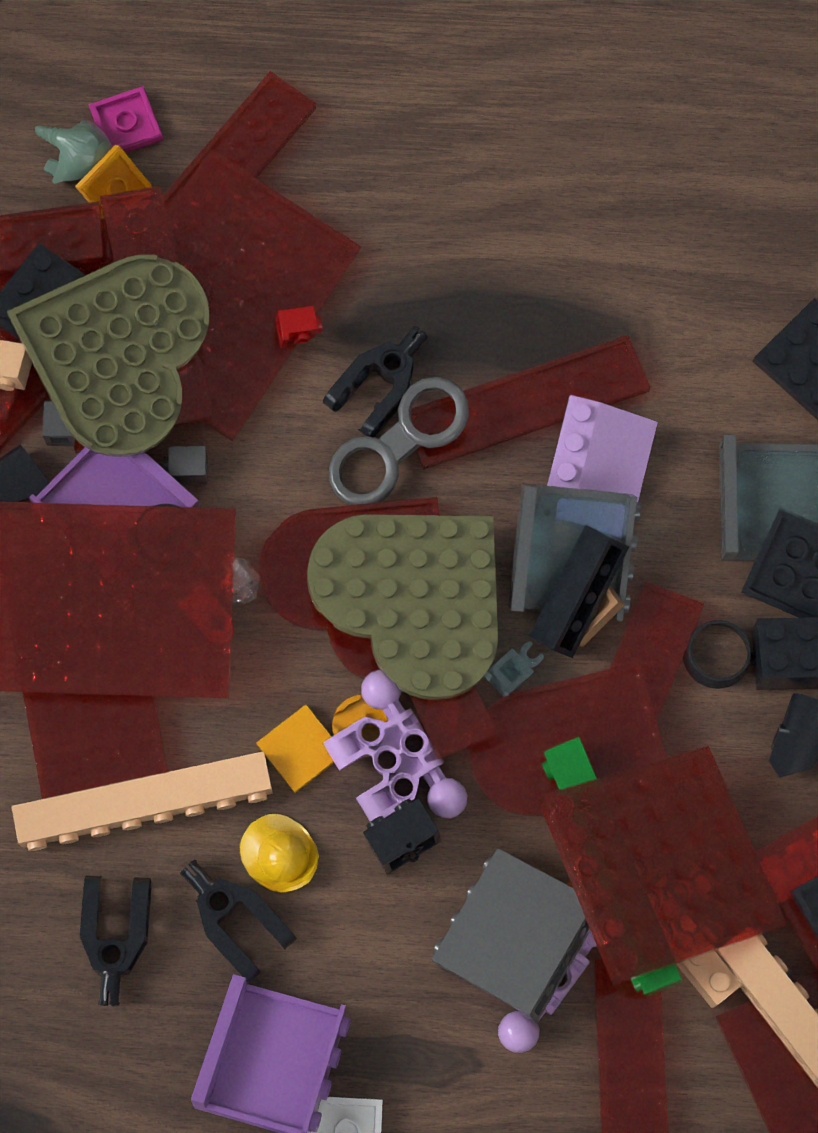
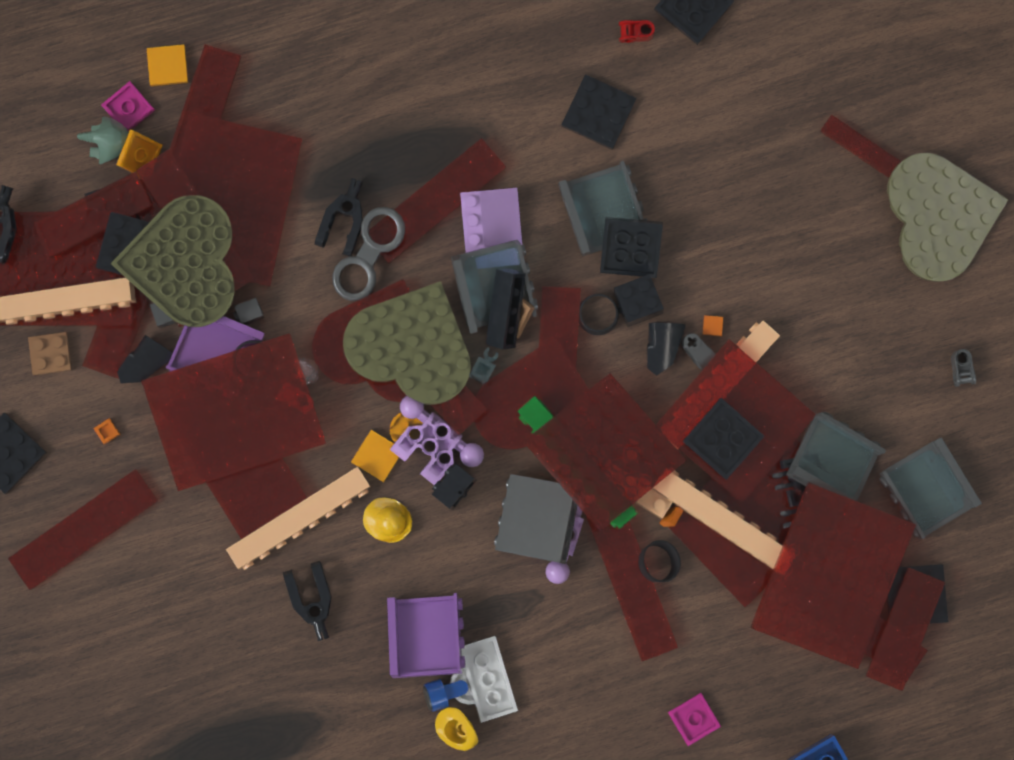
camera: 20 degrees left, 10 degrees up
(205, 84) = (167, 65): none -> light orange tile
(237, 895) = (372, 552): black piece -> none
(297, 325) = (283, 204): red brick -> none
(713, 1068) = (674, 556): none -> black tyre
(731, 1009) = (671, 516): none -> orange tile

